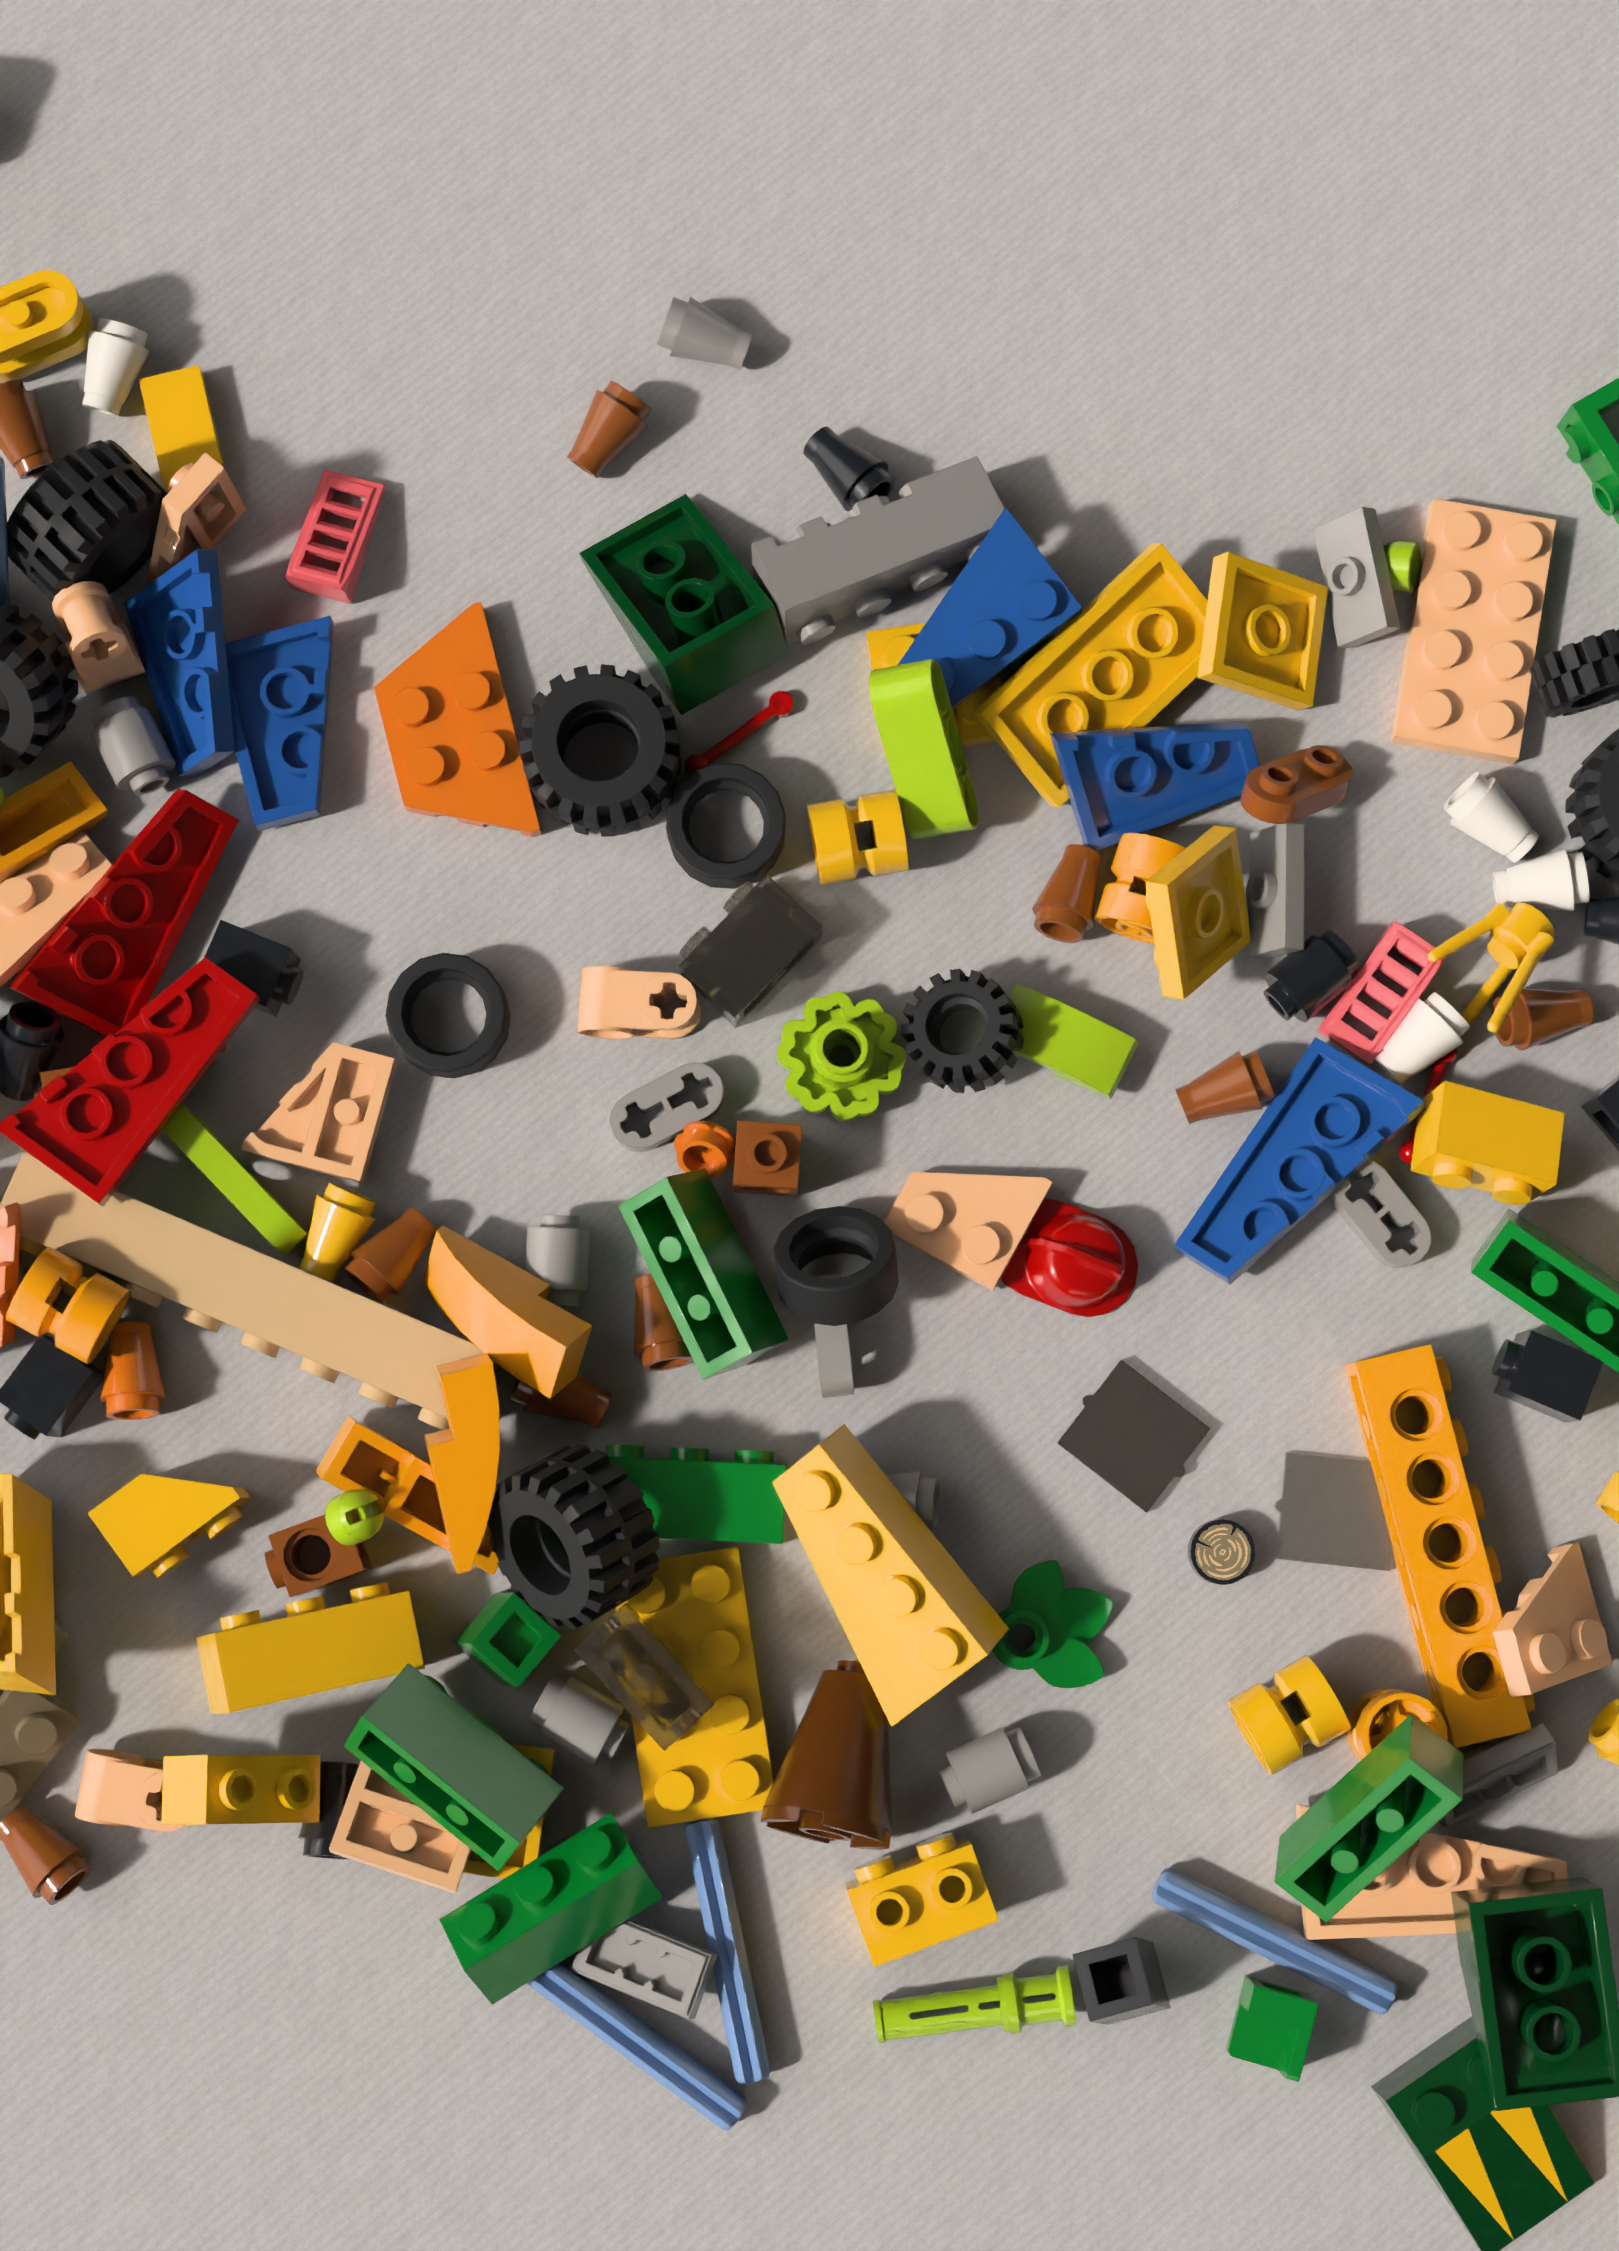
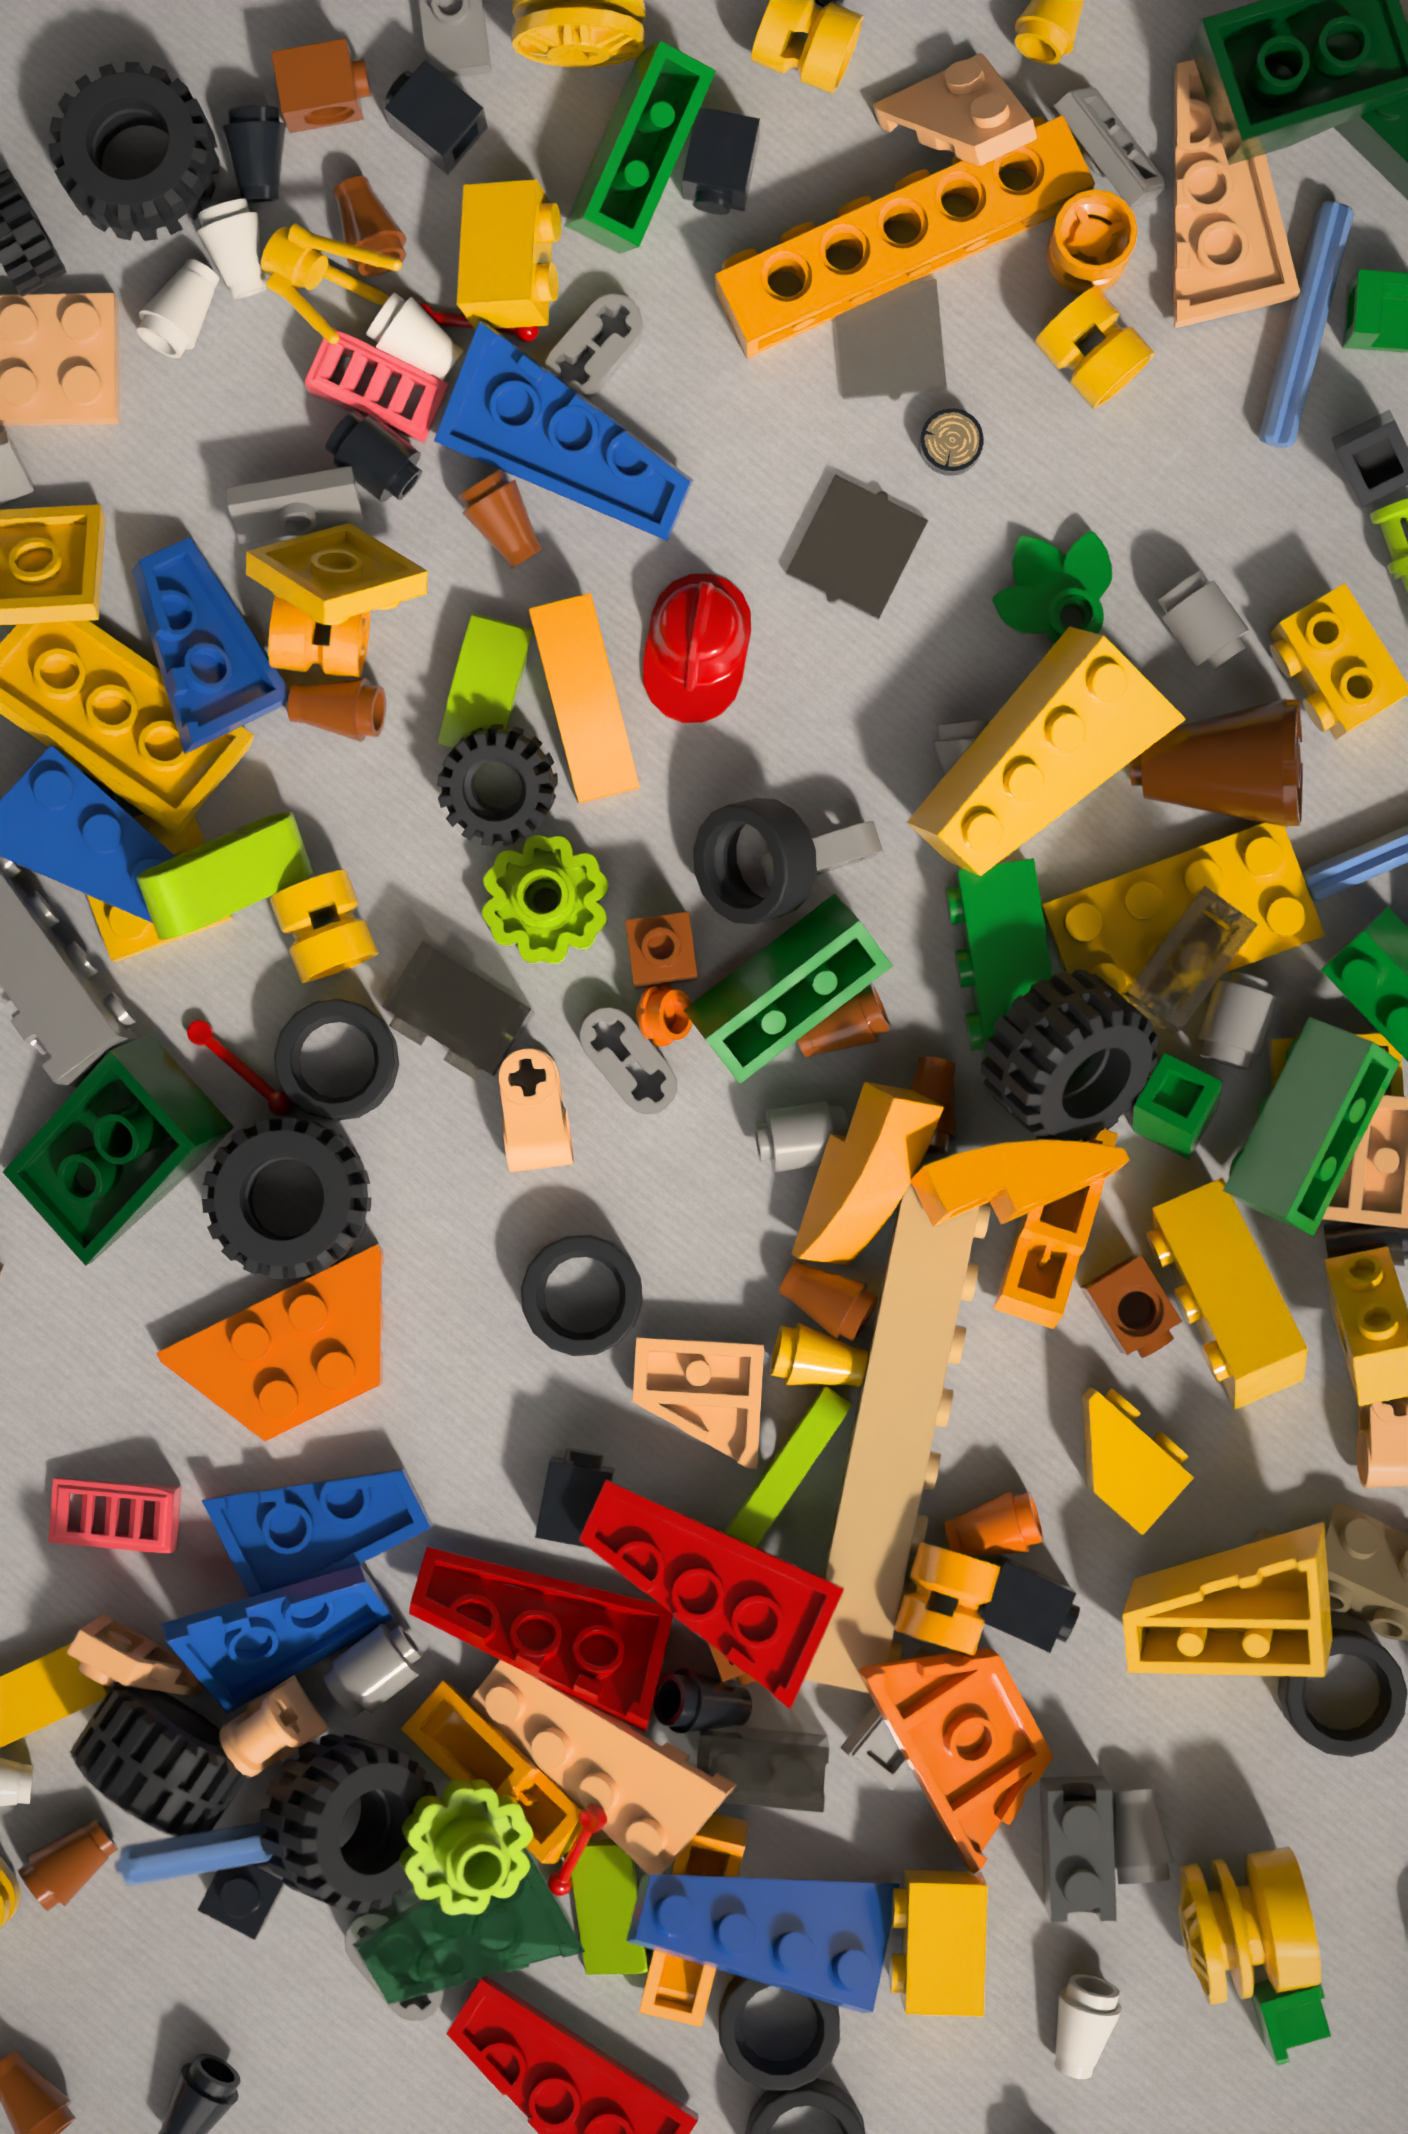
camera: 90 degrees left, 5 degrees up
(340, 1520) = (1099, 1286): lime hinge -> none
(967, 1219) = (680, 745): light nougat wing -> none
(1033, 1133) = (584, 698): none -> light orange slope
(1296, 785) = (186, 503): dark orange plate -> none
(1369, 1818) = (1181, 247): green brick -> none

